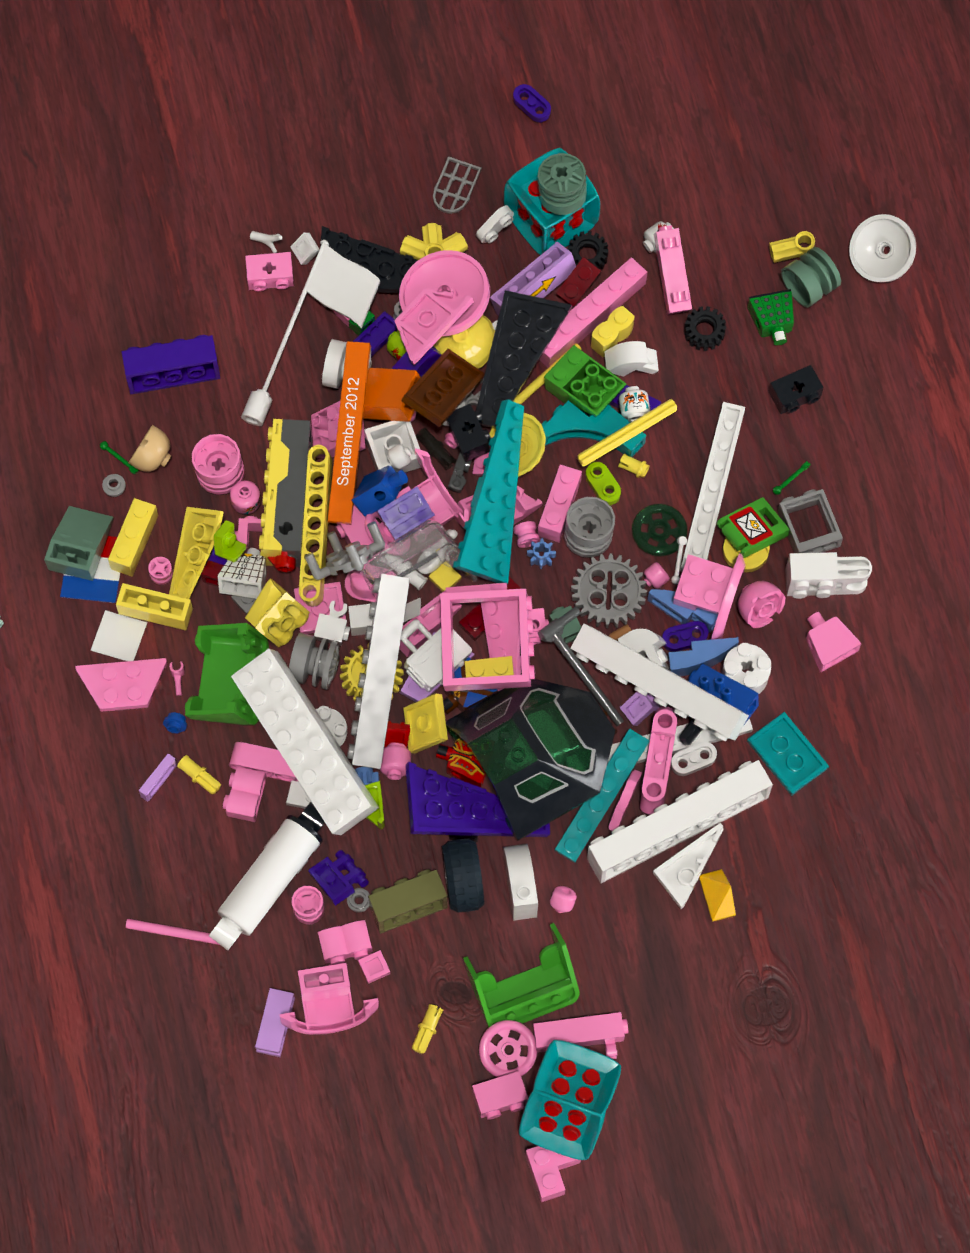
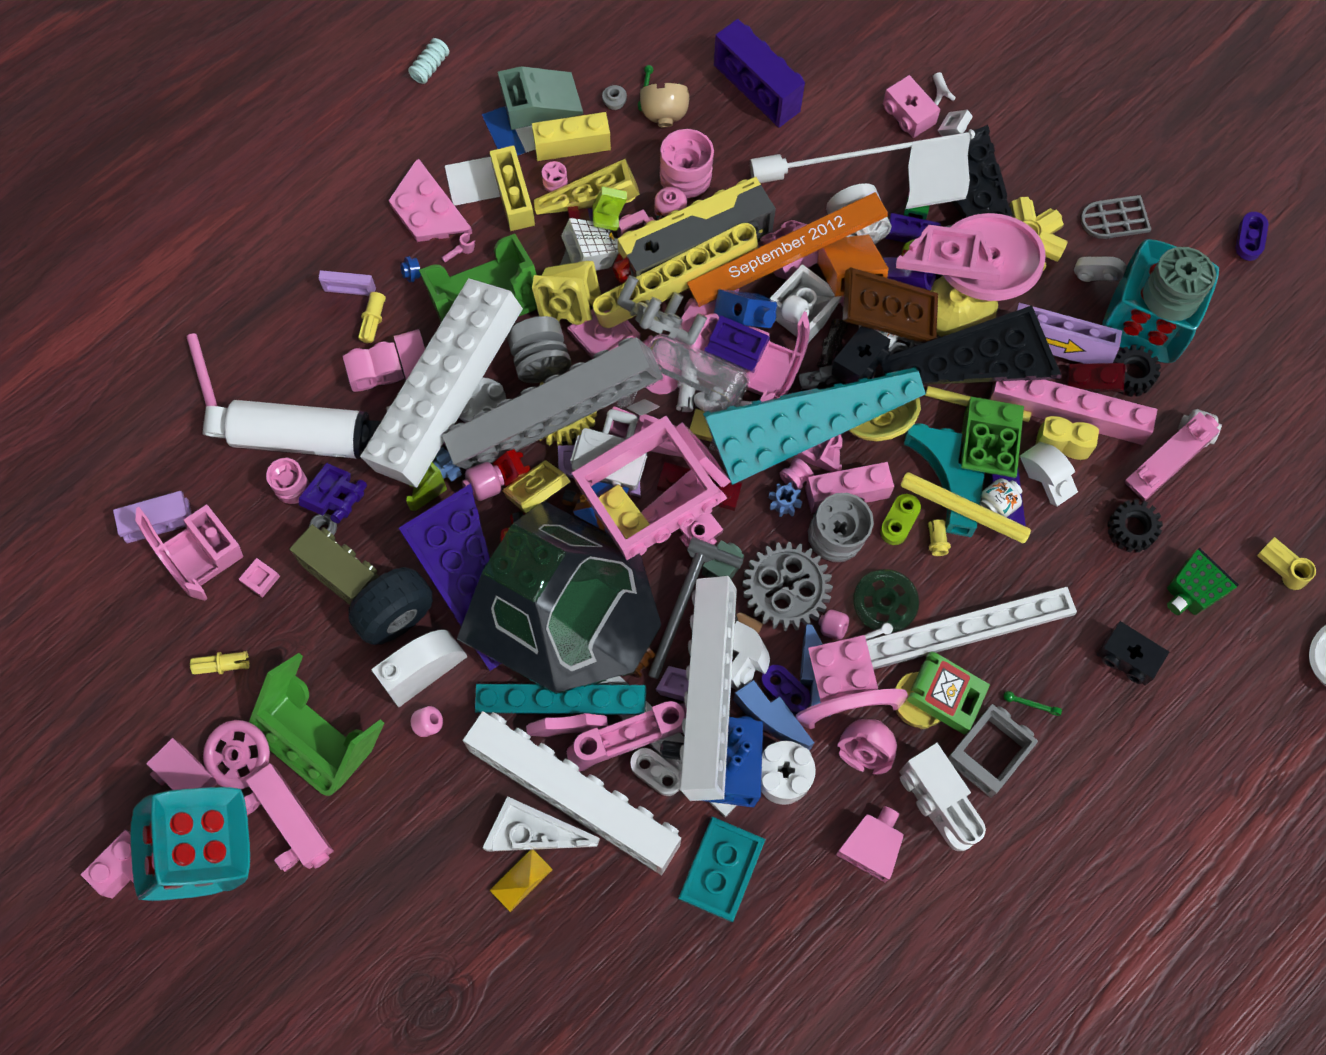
camera: 60 degrees right, 0 degrees up
(332, 626) = (583, 346): white brick -> none
(345, 942) = (269, 536): bright pink brick -> none
(811, 277) = (1269, 598): sand green wheel -> none

